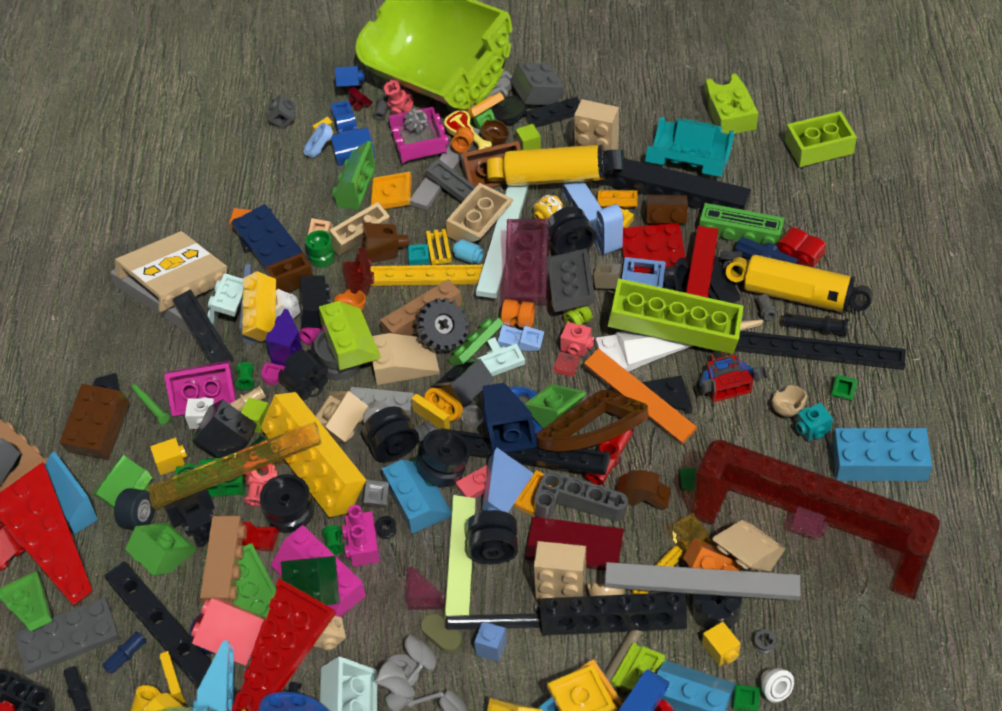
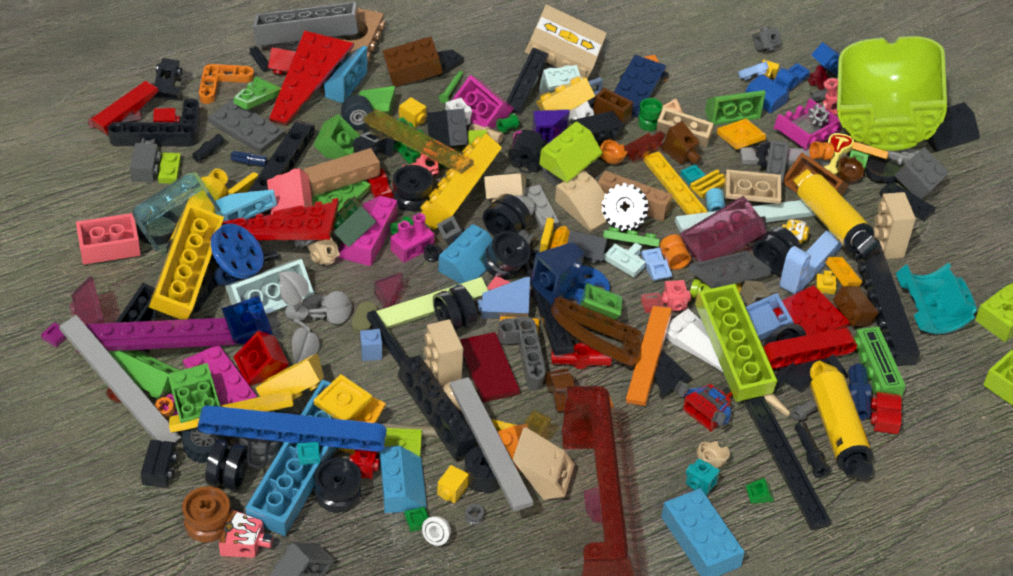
camera: 55 degrees right, 5 degrees down
(430, 186) = (761, 152): none -> black piece
(528, 137) = (861, 193): lime piece -> none

